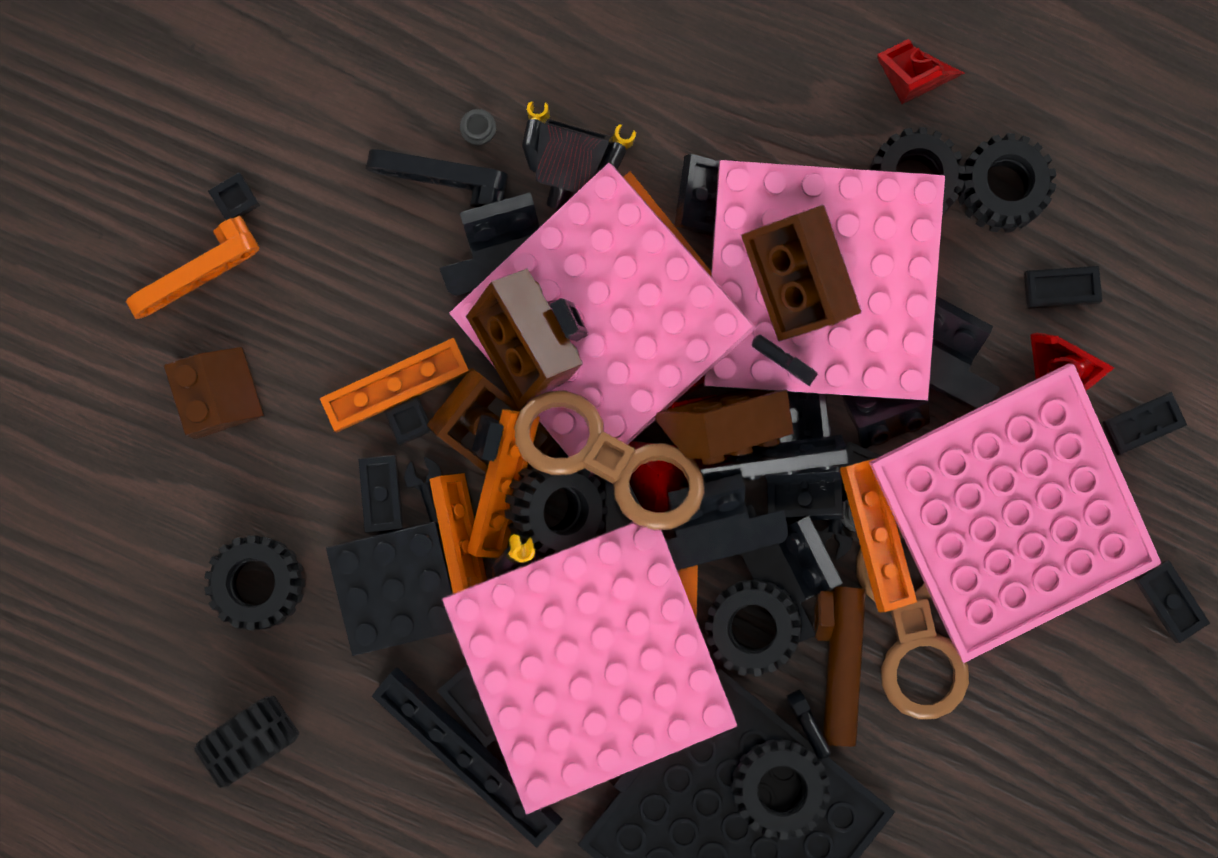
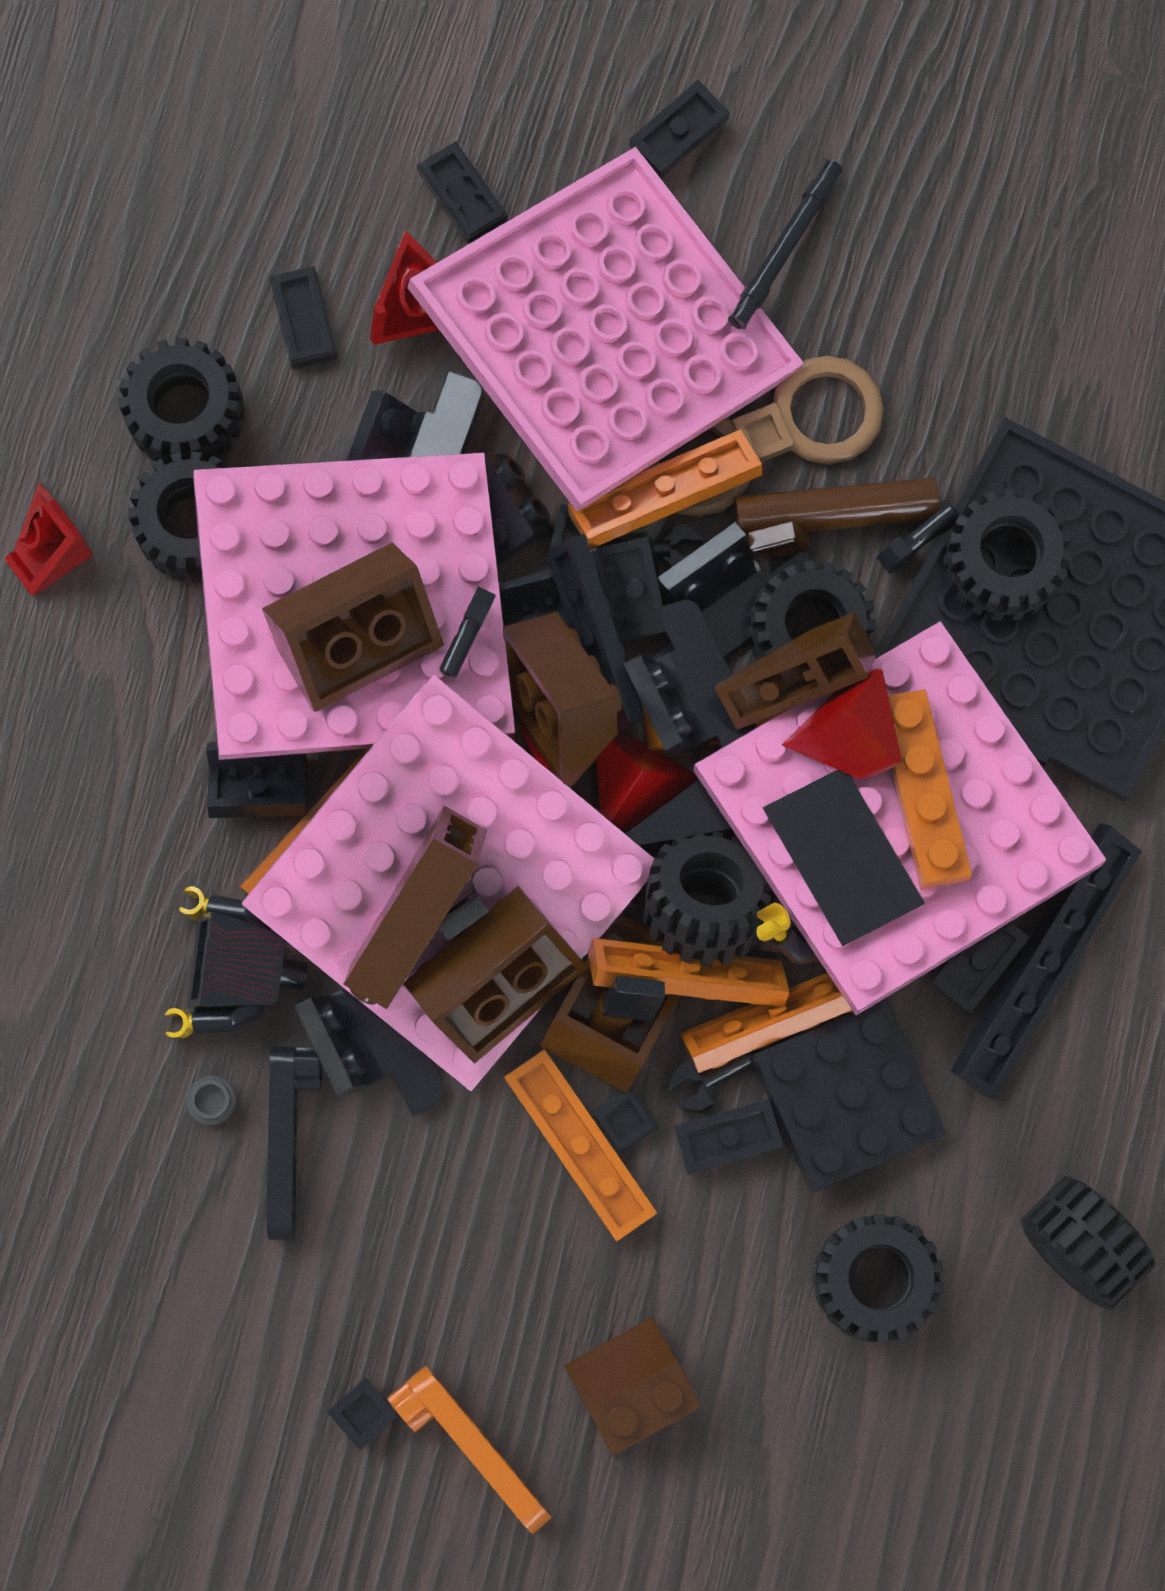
camera: 100 degrees left, 5 degrees down
(562, 611) = (843, 856): none -> black sticker
(581, 287) = (416, 908): none -> reddish brown slope
(603, 683) = (926, 795): none -> orange plate
(609, 459) = (636, 832): medium nougat bar -> none
(658, 637) = (852, 730): none -> red slope
(712, 609) = (799, 672): none -> reddish brown slope
(1097, 696) = (758, 287): none -> black piece

